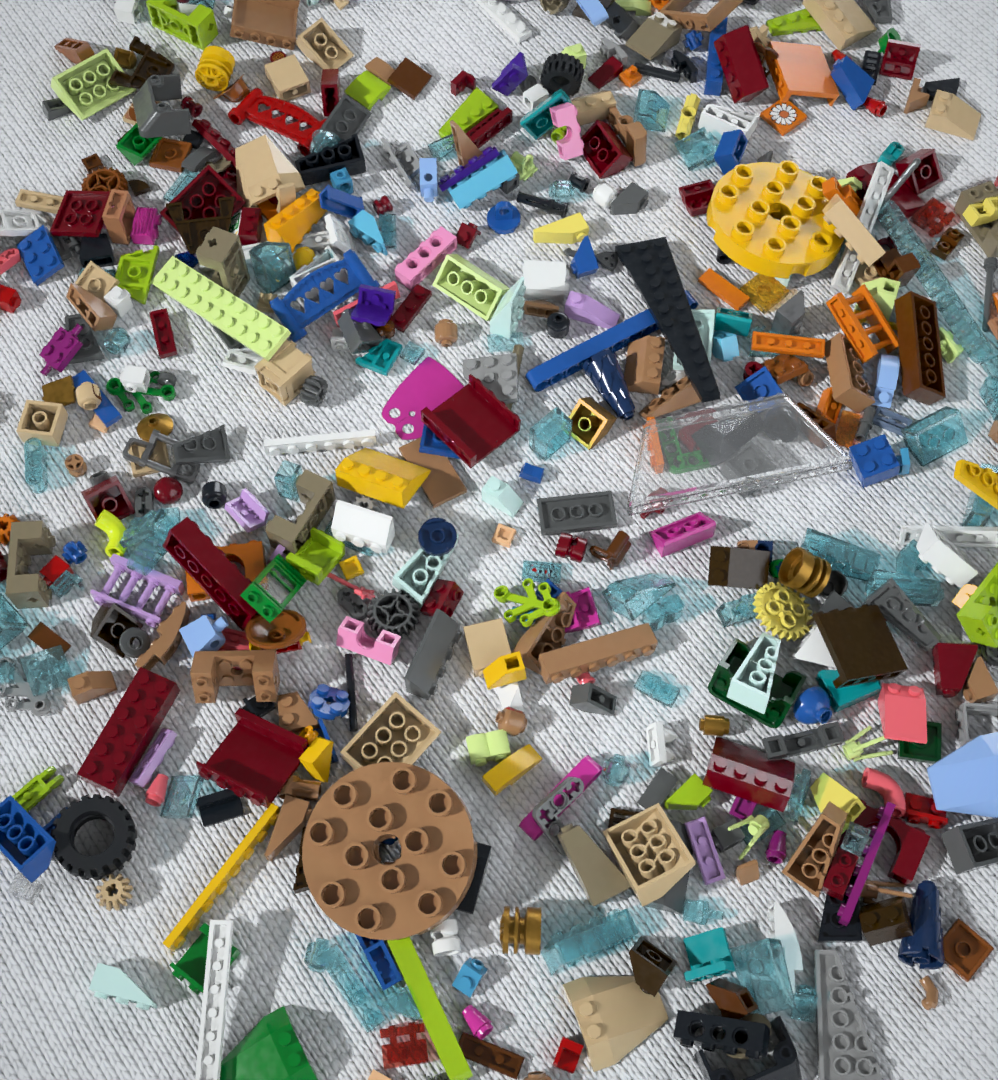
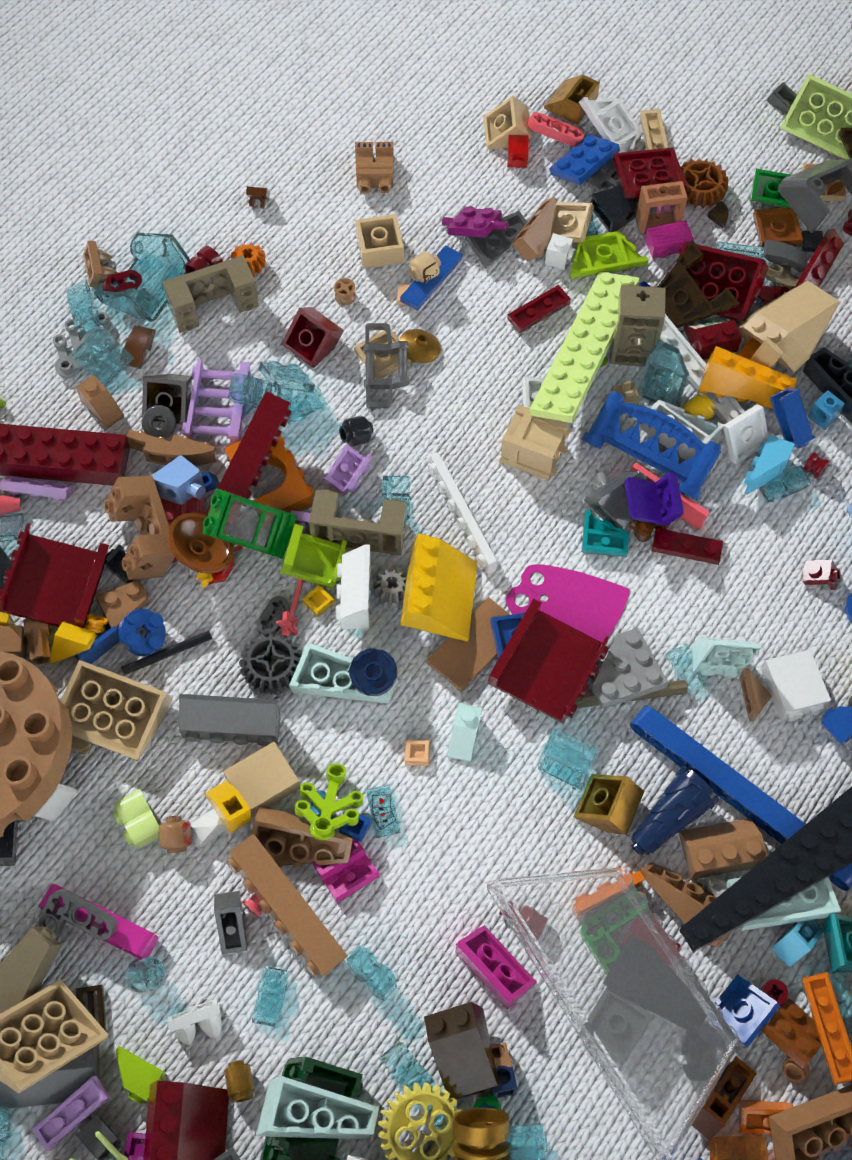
camera: 70 degrees right, 0 degrees up
(38, 472) = (330, 256): clear light blue beam -> none
(54, 570) = (214, 322): red brick -> none
(60, 391) = (425, 240): pearl gold piece -> none
(65, 582) = (205, 334): clear light blue bracket -> none
(74, 552) = (242, 329): blue gear -> none
(92, 163) = (729, 160): reddish brown tile -> none
(99, 477) = (337, 317): dark grey tile -> none
(114, 529) = (282, 352): neon yellow cylinder -> none
(117, 340) = (508, 269): clear light blue head -> none
(119, 391) = (459, 312): green plant -> none
(135, 379) = (465, 303): white brick -> none
(140, 505) = (323, 371): dark grey beam -> none
(166, 379) = (480, 333): dark grey tile -> none
(168, 490) = (347, 386): dark red hair -> none
(205, 448) = (406, 399): dark grey wing -> none
(313, 391) = (523, 480): dark grey gear -> none
(353, 637) = (227, 631): bright pink arch -> none
(412, 353) = (622, 568): clear light blue plate -> none
(425, 258) = (770, 548): bright pink brick -> none
(444, 596) = (306, 711): dark red bracket -> none
(446, 332) = (666, 595): medium nougat head -> none
(469, 286) = (747, 600): yellowish green slope -> none
(511, 769) = (118, 854): yellow slope -> none
(531, 473) = (512, 758): blue piece -> none
(558, 325) = (734, 721): black head -> none
(571, 547) = (423, 835): dark red wheel -> none
(576, 513) = (476, 827): dark grey plate -> none
(590, 311) = (775, 755): lavender slope -> none
(615, 551) = (437, 889): reddish brown piece -> none
(636, 594) = (384, 931): clear light blue slope -> none
(658, 789) = (135, 1034): dark grey slope -> none

